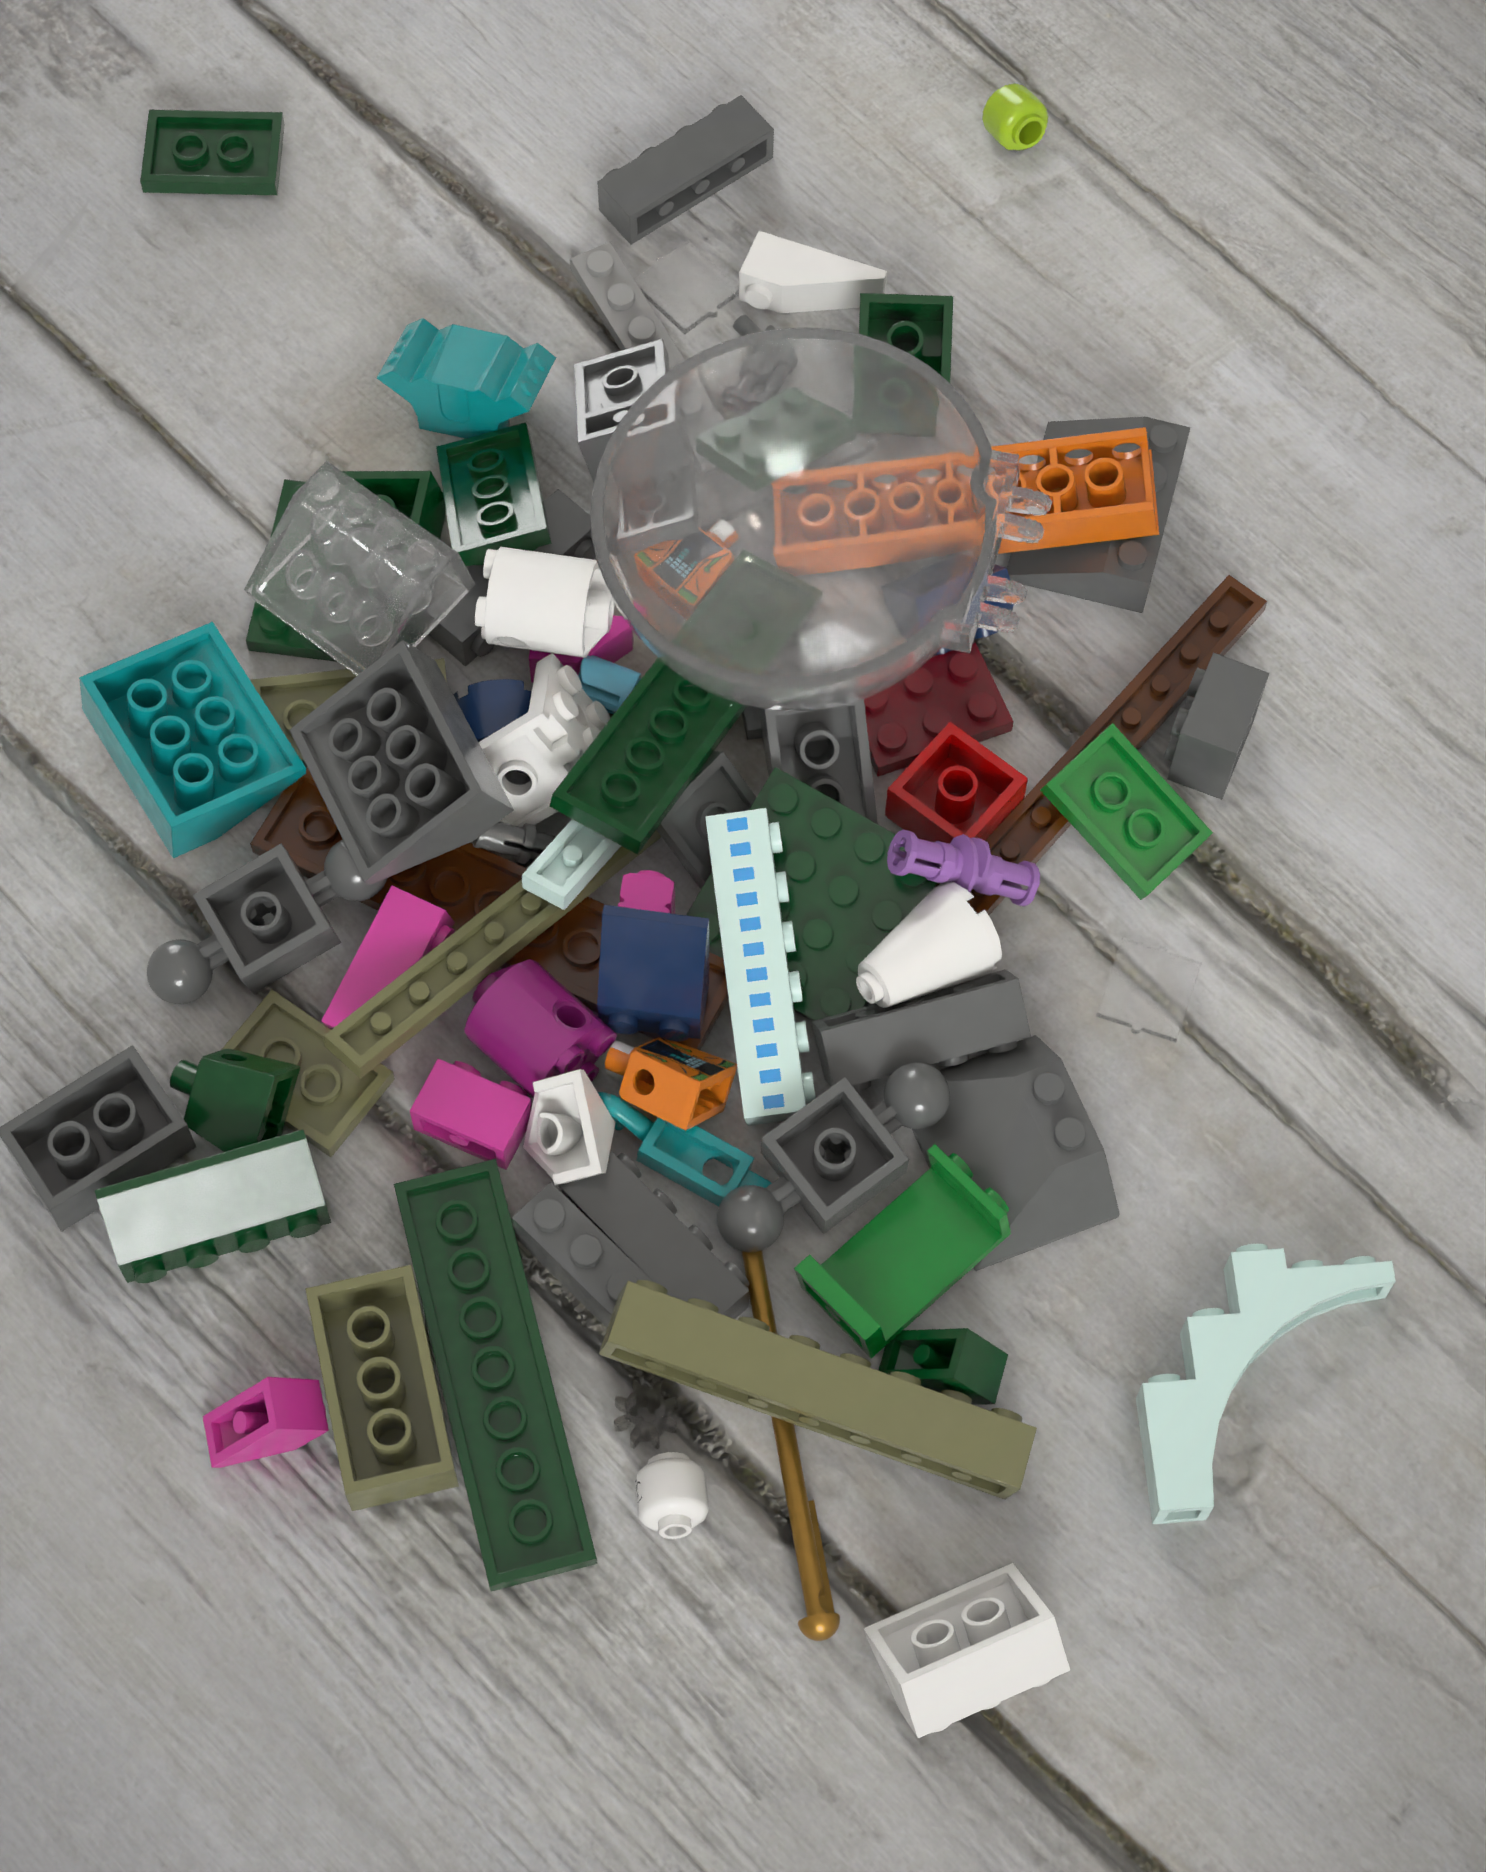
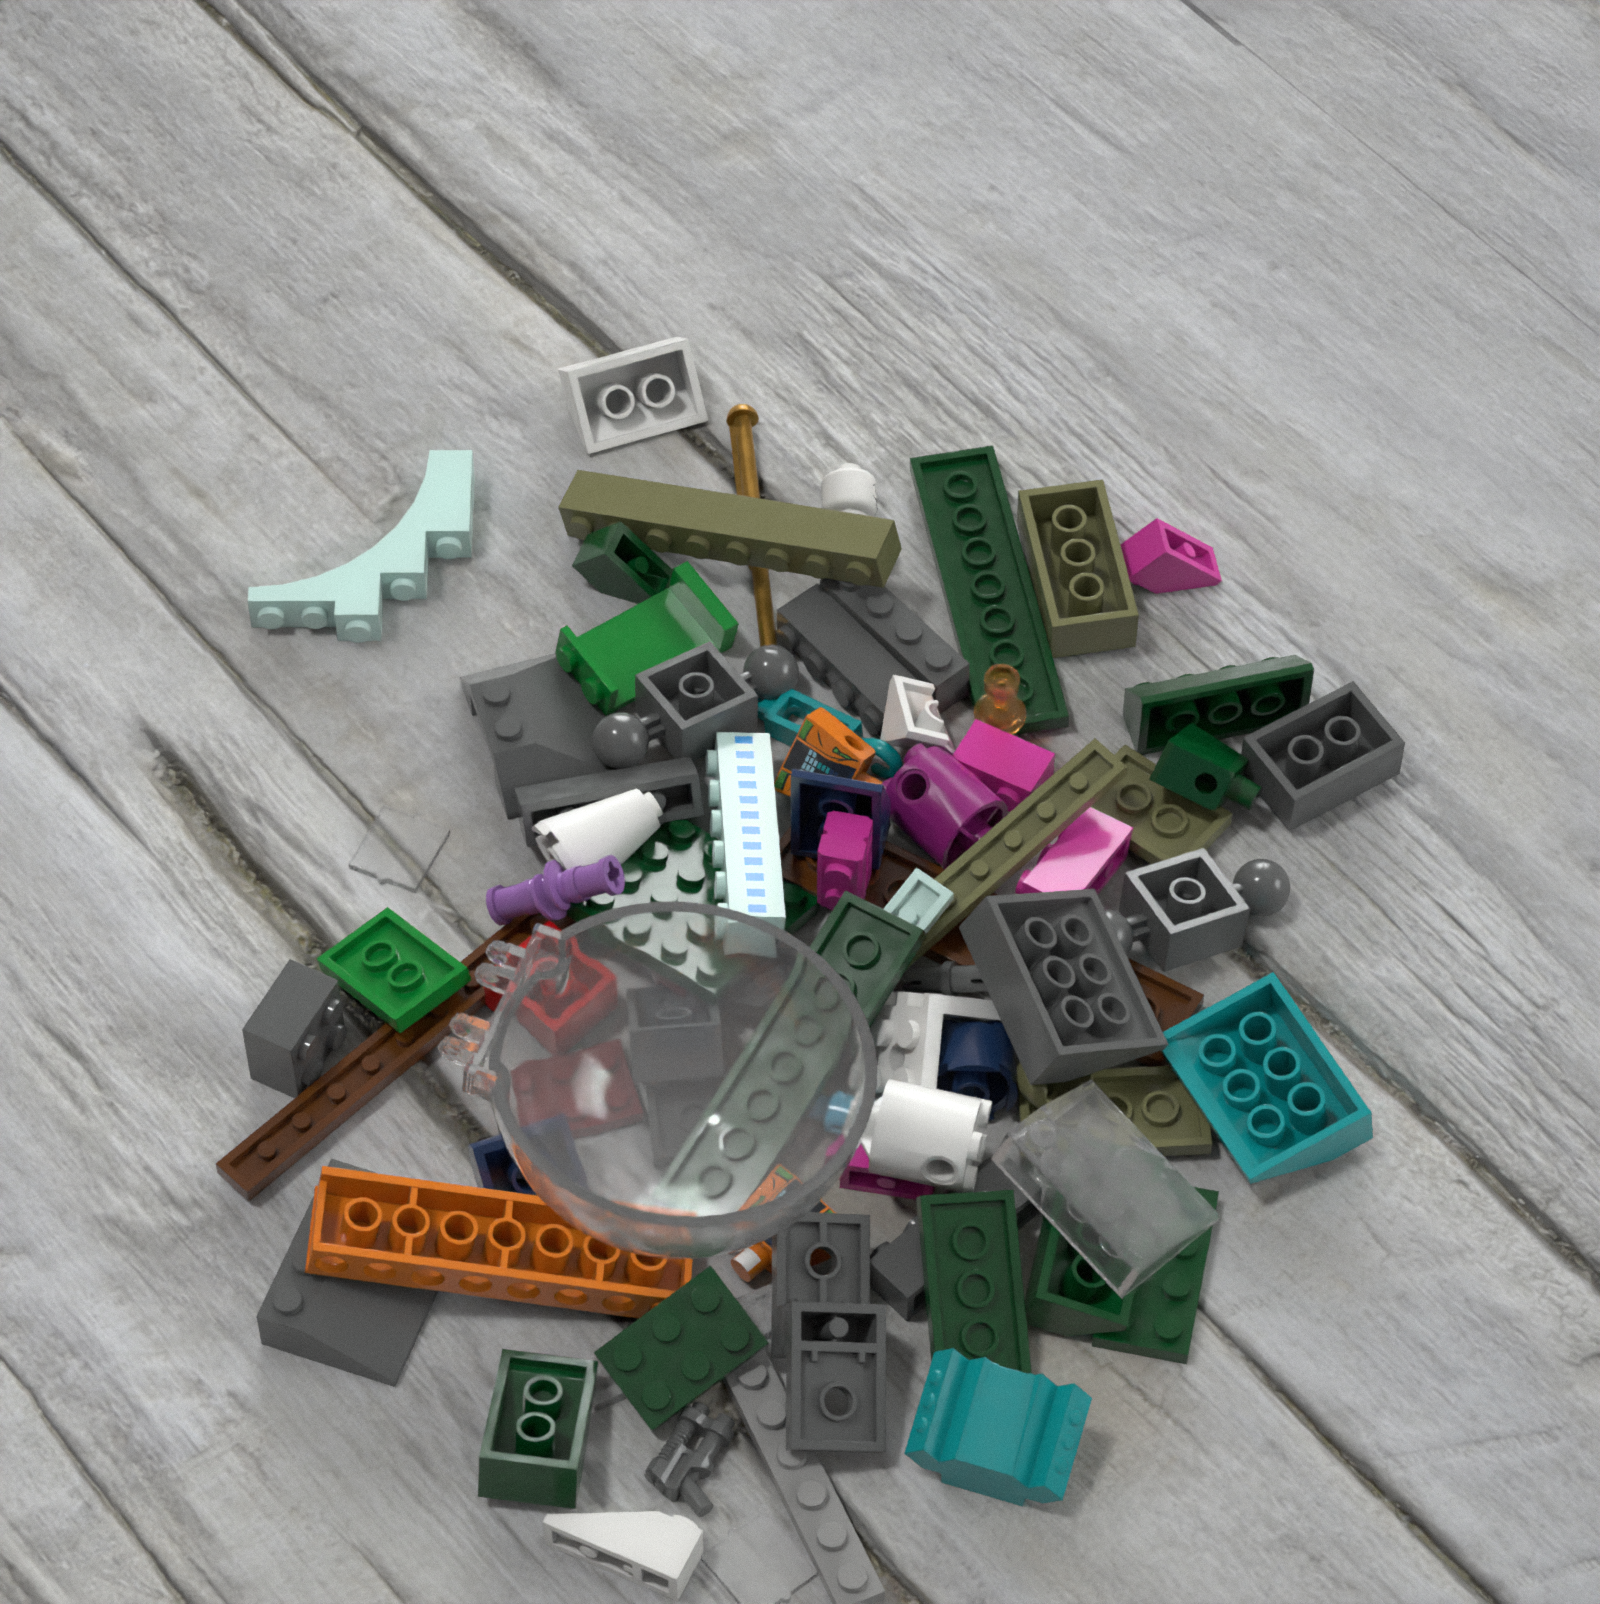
camera: 175 degrees left, 10 degrees down
(474, 1174) = (1000, 705): none -> clear orange piece

